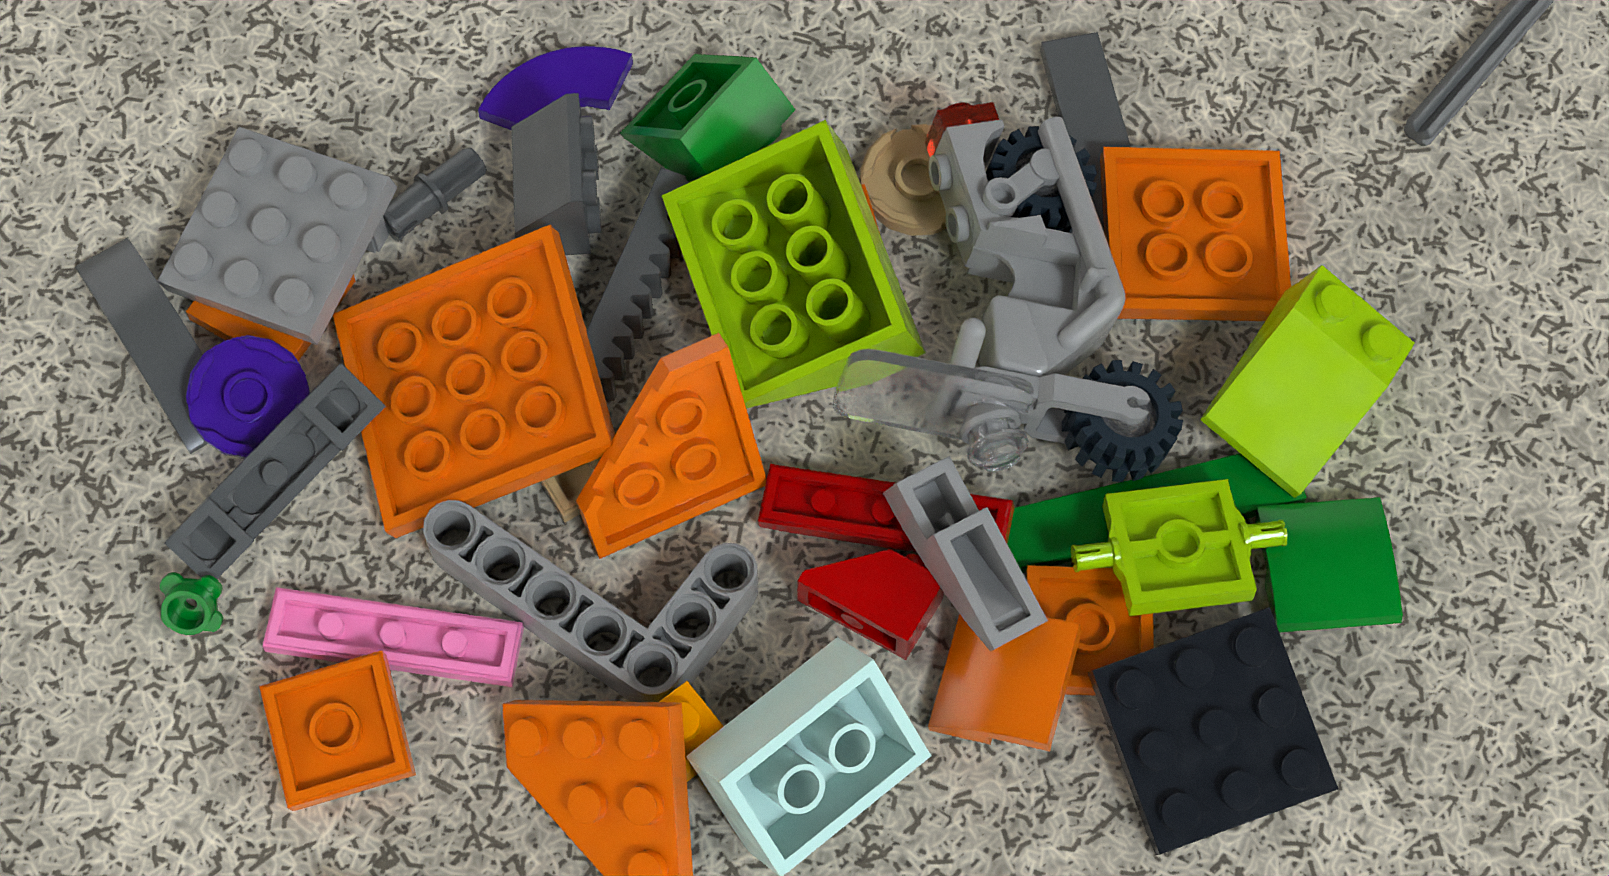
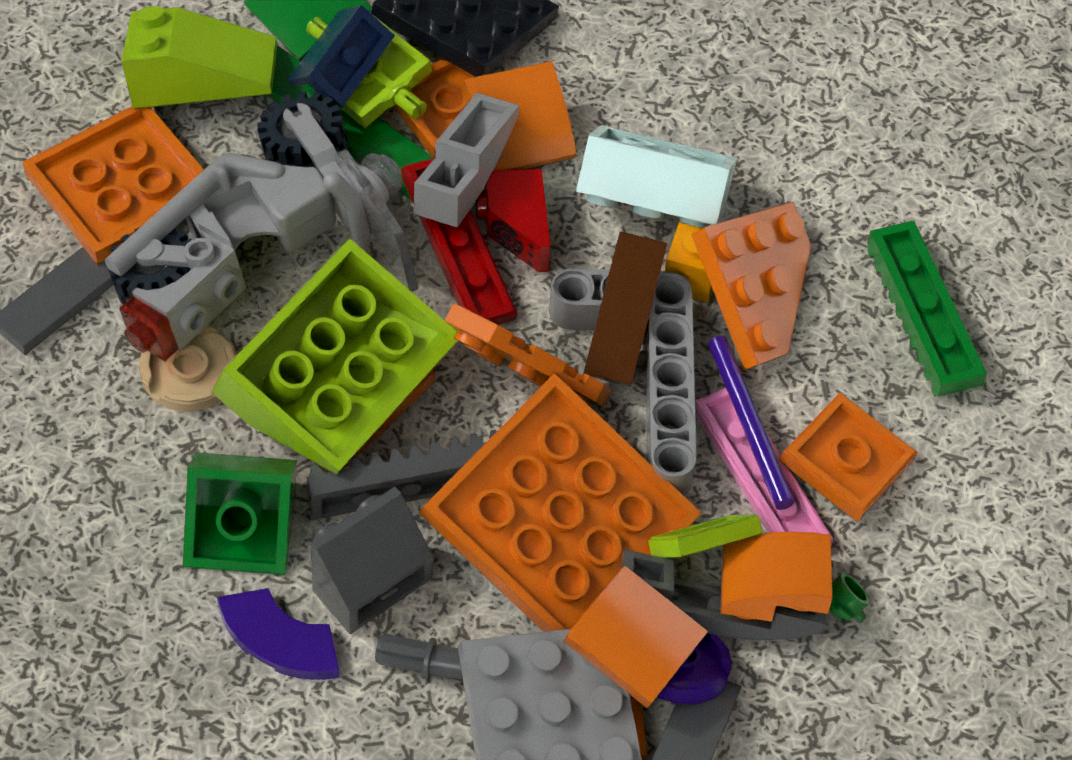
camera: 130 degrees left, 10 degrees down
(251, 535) = (776, 571): none -> orange slope
(271, 330) = (635, 636): none -> orange slope
(347, 502) = (705, 535): none -> lime tile
(447, 652) = (751, 423): none -> dark purple bar
(656, 594) = (625, 309): none -> reddish brown tile
(1193, 504) = (343, 54): none -> dark blue panel

